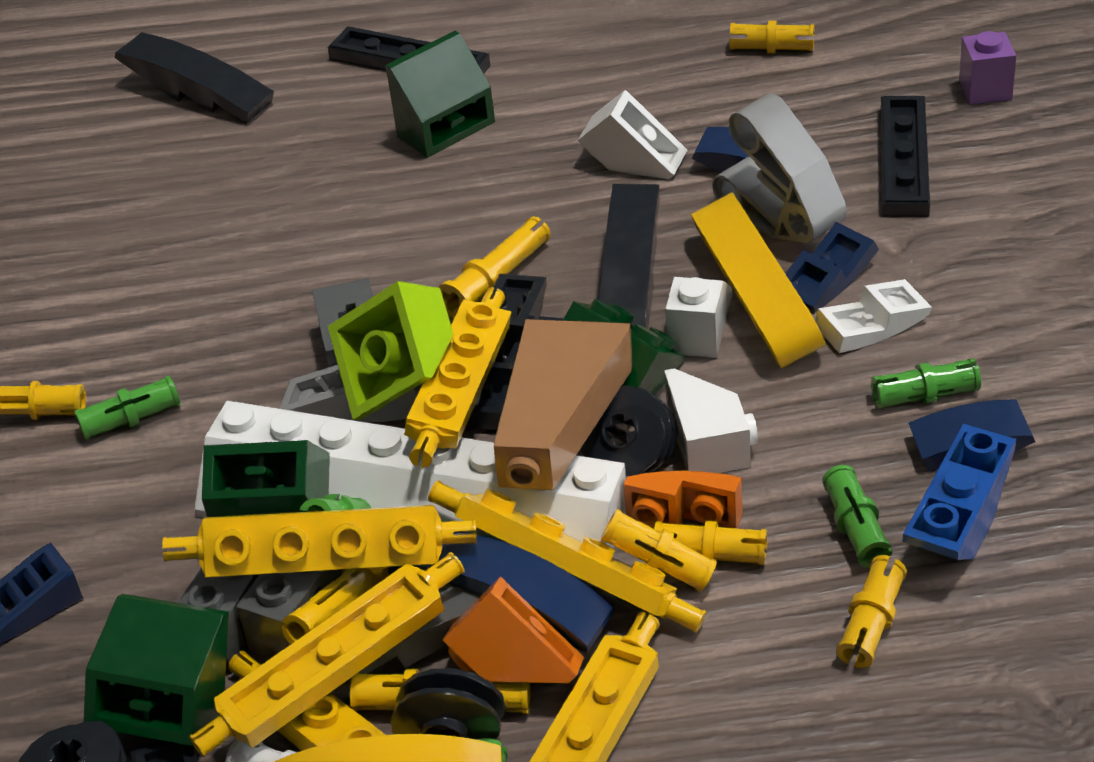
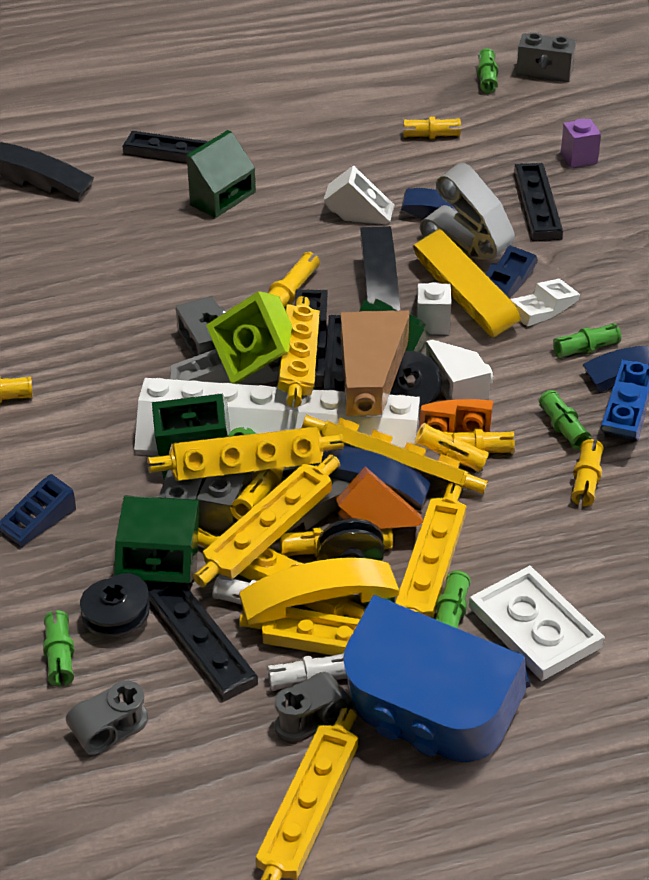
camera: 15 degrees left, 0 degrees up
(127, 407) = (65, 390): bright green pin -> none

